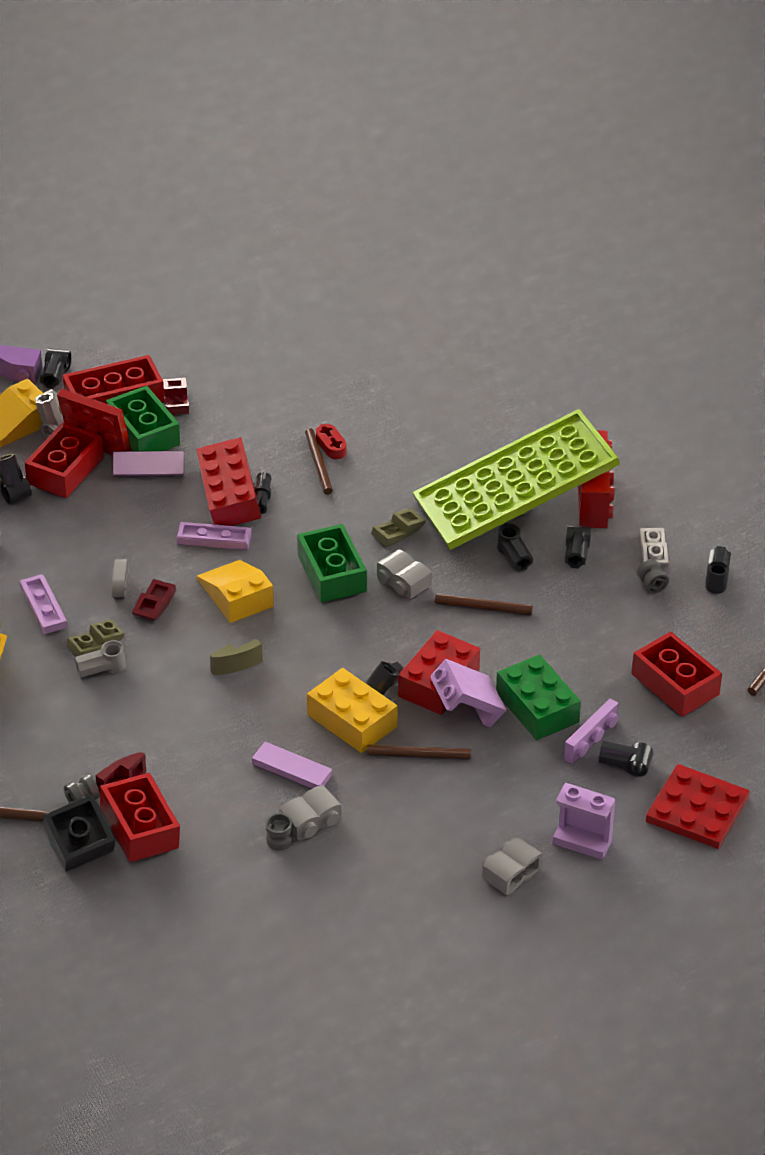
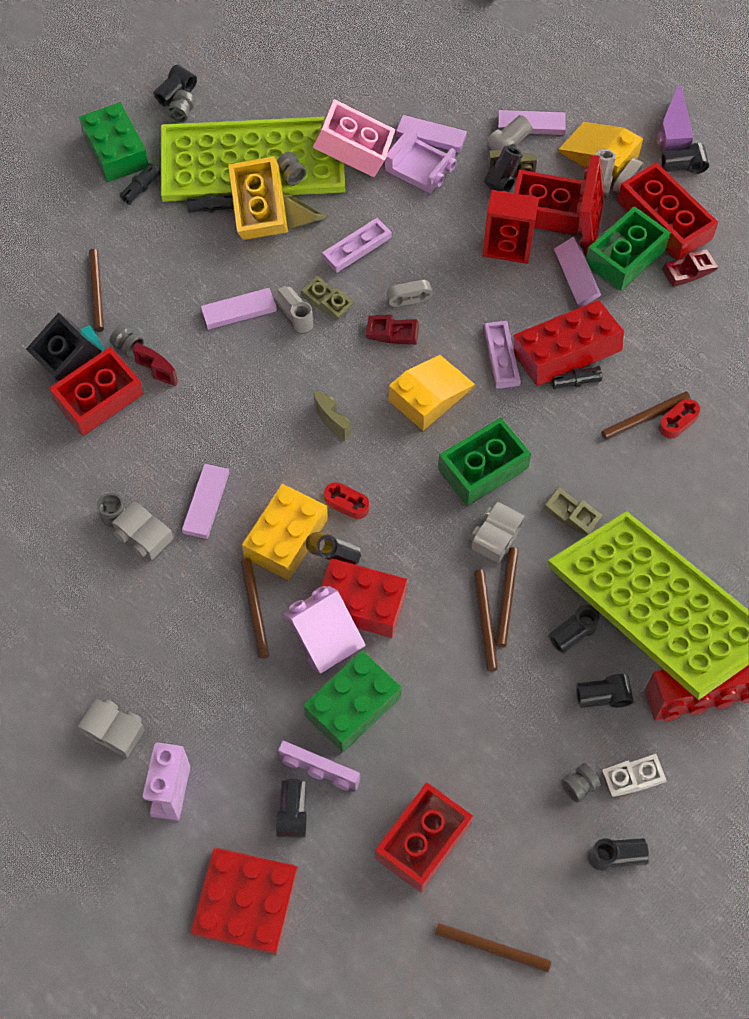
camera: 75 degrees right, 20 degrees up
(76, 706) = (238, 308): none -> lavender tile
(91, 481) = (510, 226): none -> red brick
(329, 667) = (346, 500): none -> red beam
(471, 587) = (507, 597): none -> reddish brown bar

